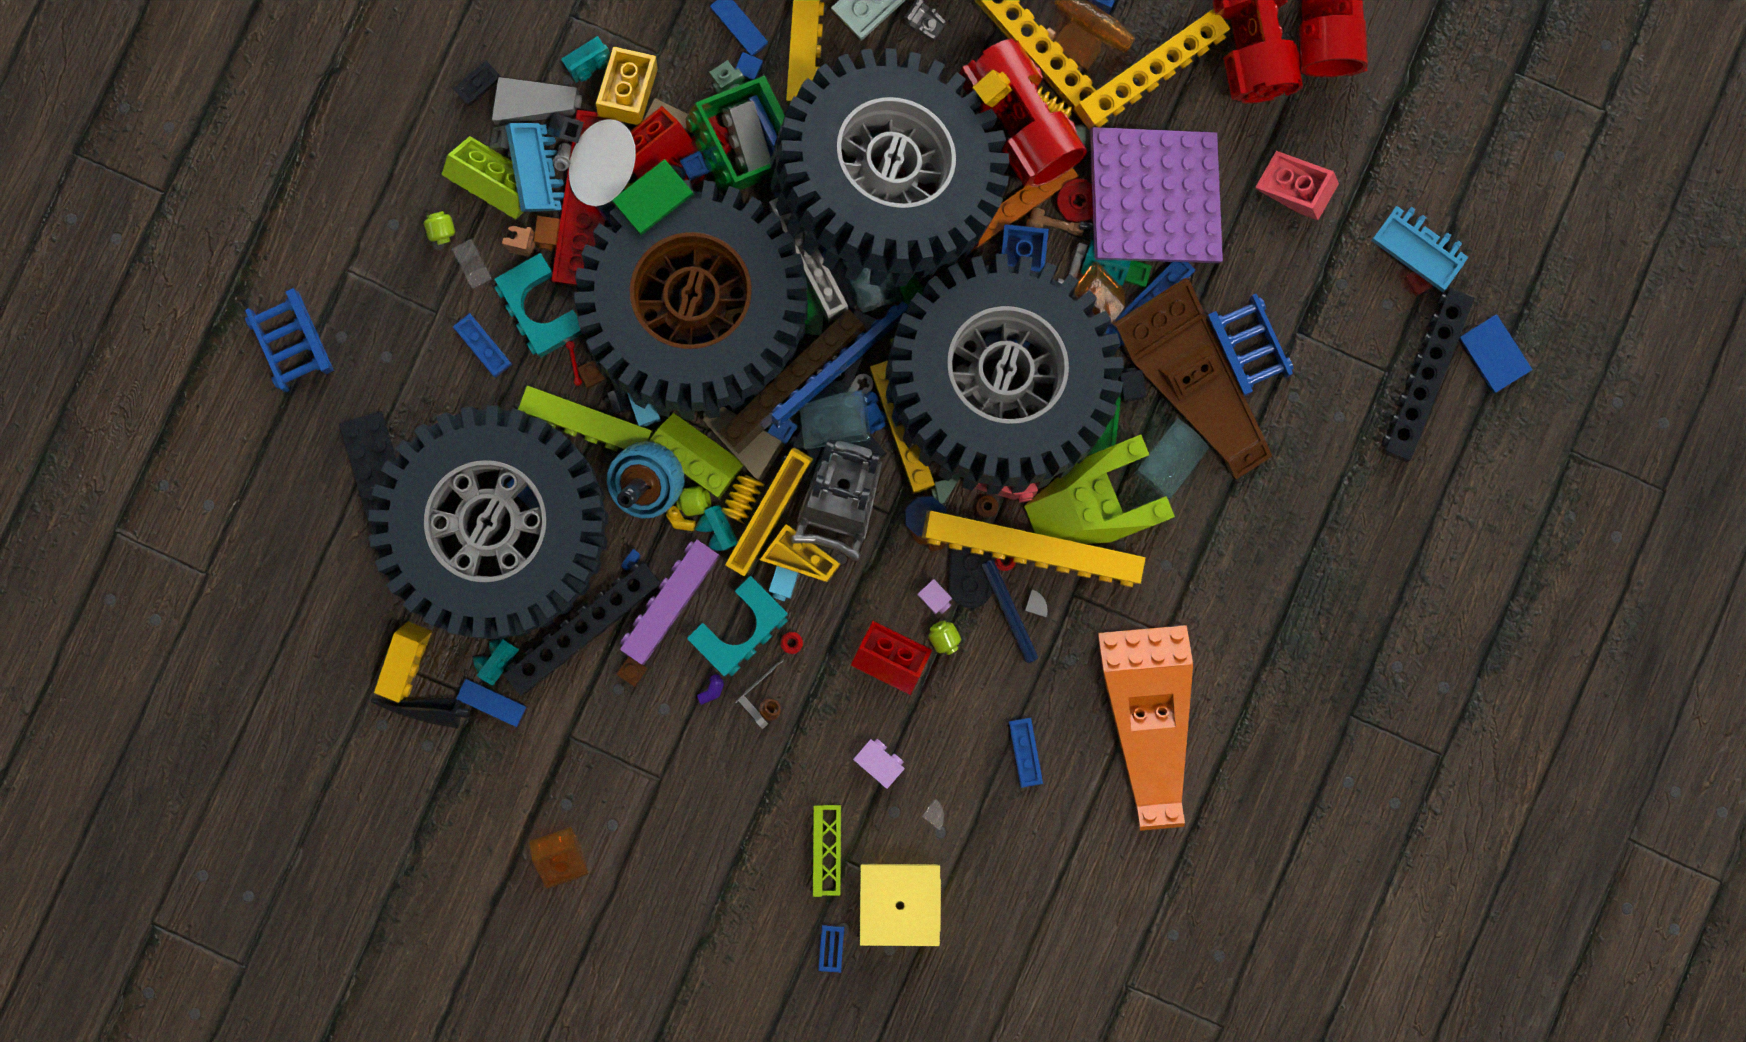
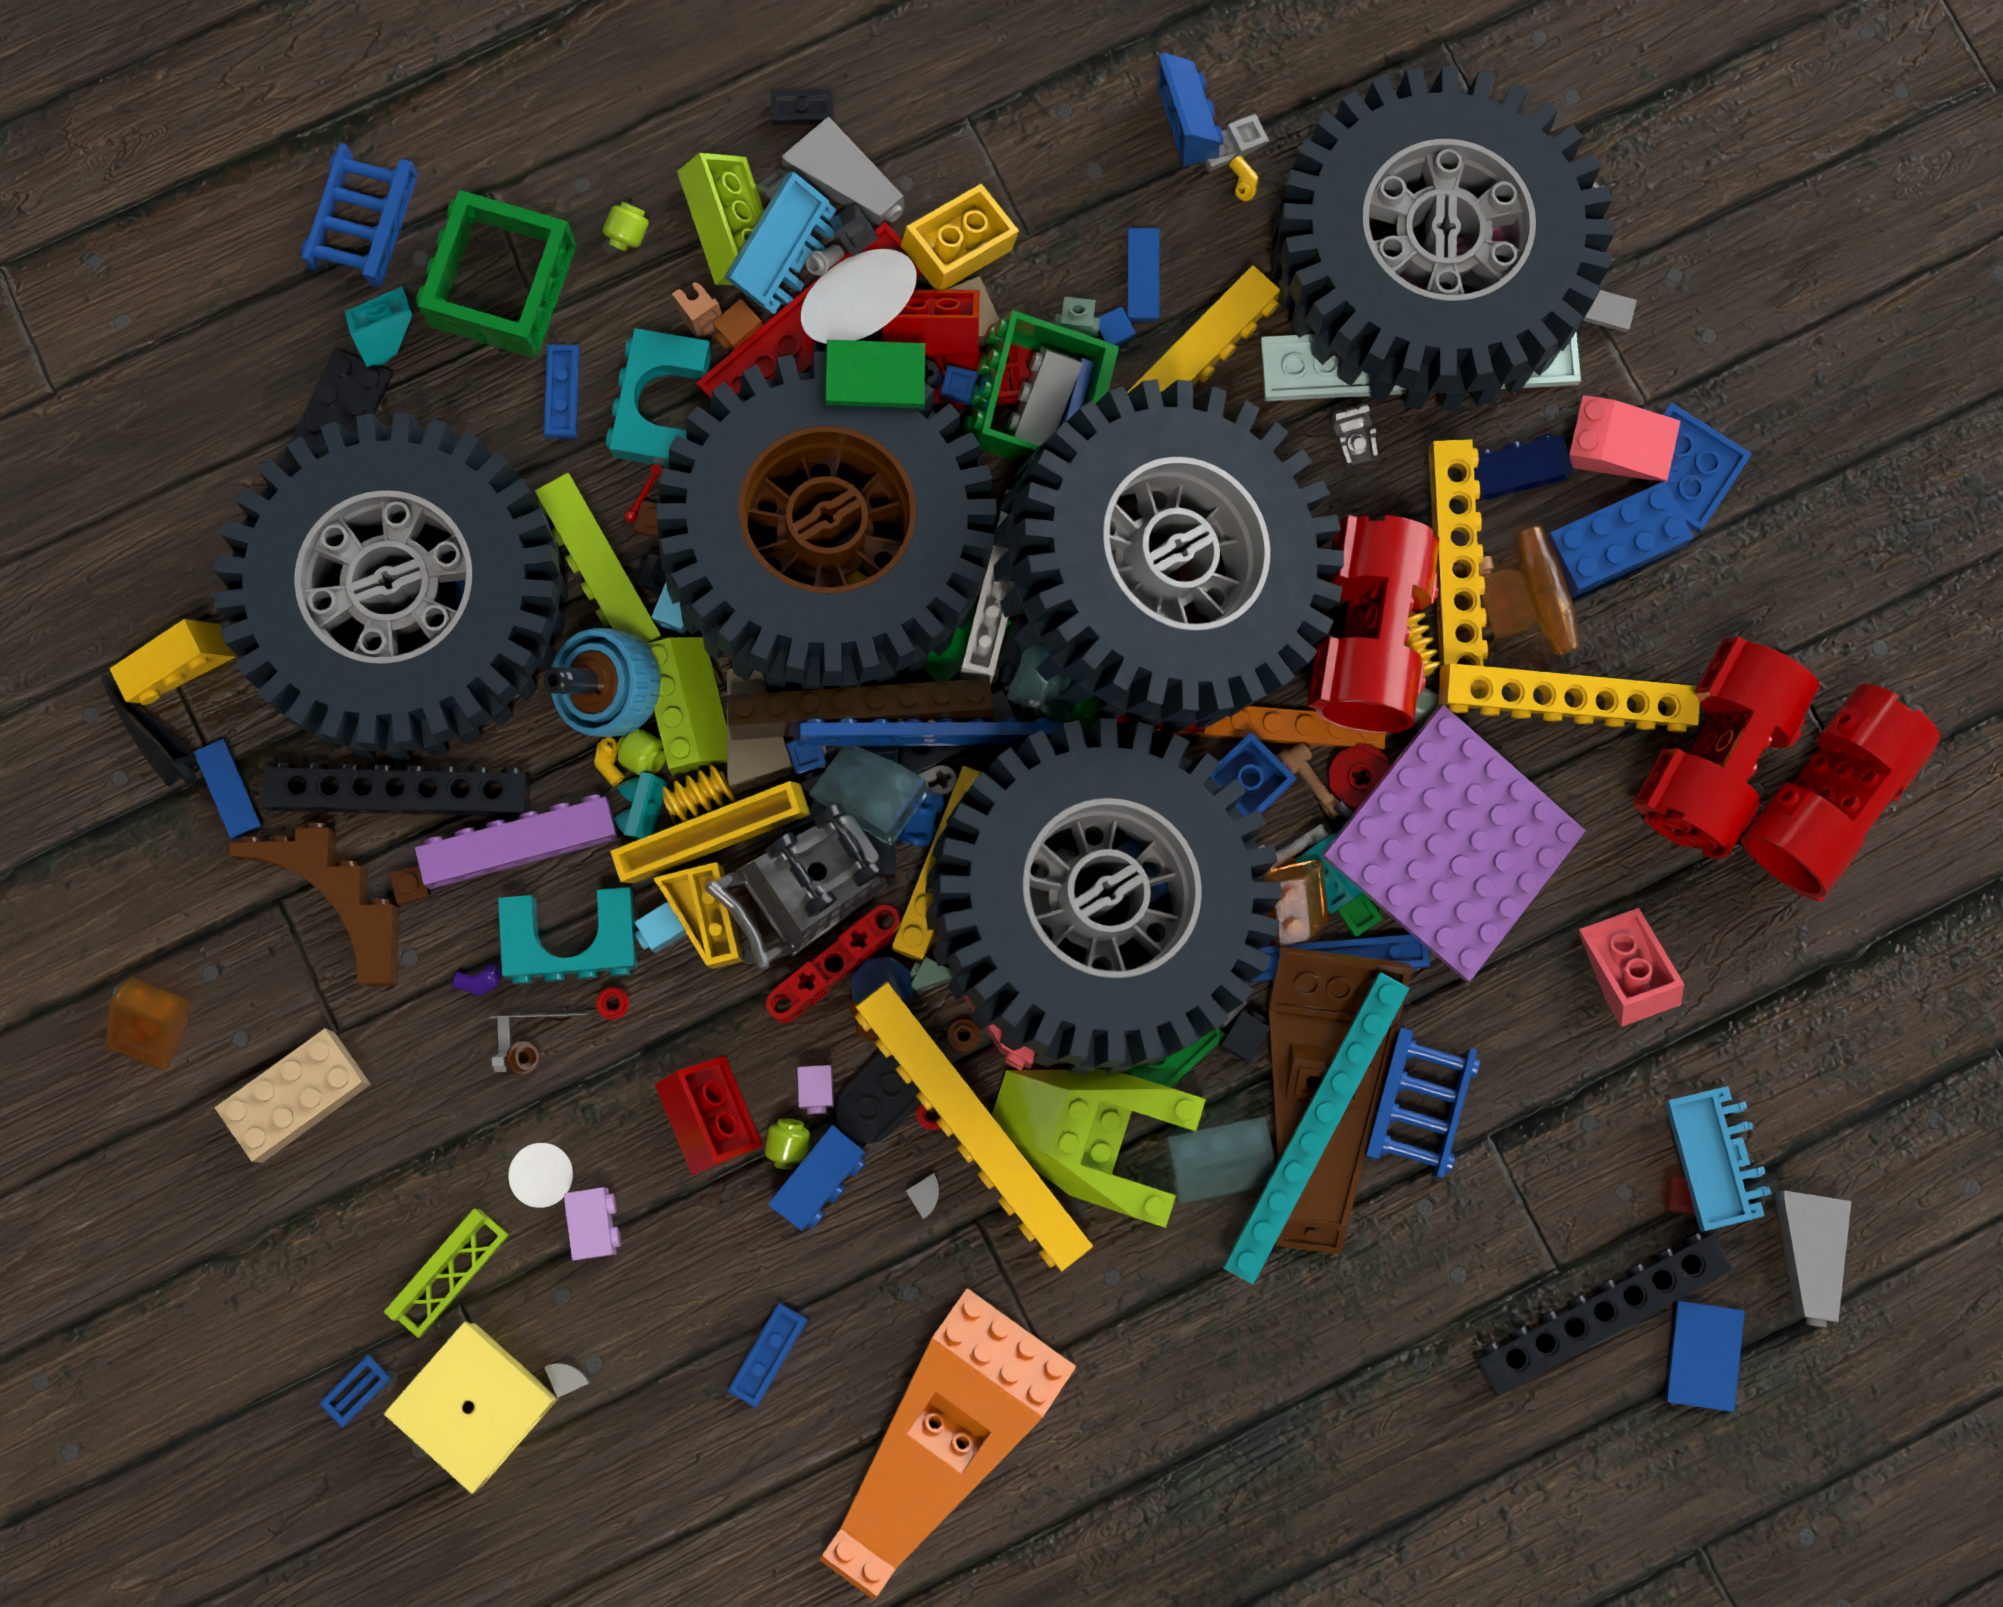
camera: 40 degrees right, 5 degrees down
(354, 390) = (379, 326): none -> teal slope
(436, 335) = (521, 336): none -> green window
(472, 263) = (628, 294): clear slope -> none
(491, 668) = (261, 750): teal tile -> none
(568, 700) = (370, 927): none -> reddish brown arch
(587, 59) = (941, 177): teal bracket -> none
(631, 560) = (517, 759): blue tile -> none
(668, 829) = (292, 1096): none -> tan brick
(830, 761) = (540, 1175): none -> white sticker
(891, 513) = (823, 980): none -> red piece
(933, 851) = (565, 1378): none -> light grey tile
(934, 814) = (604, 1337): clear tile -> none
(977, 641) = (818, 1179): none -> blue slope
(993, 87) = (1361, 563): yellow brick -> none
(1010, 611) = (887, 1176): dark blue axle -> none
(1208, 401) = (1315, 1128): none -> teal plate
(1508, 255) = (1815, 1252): none -> light grey slope

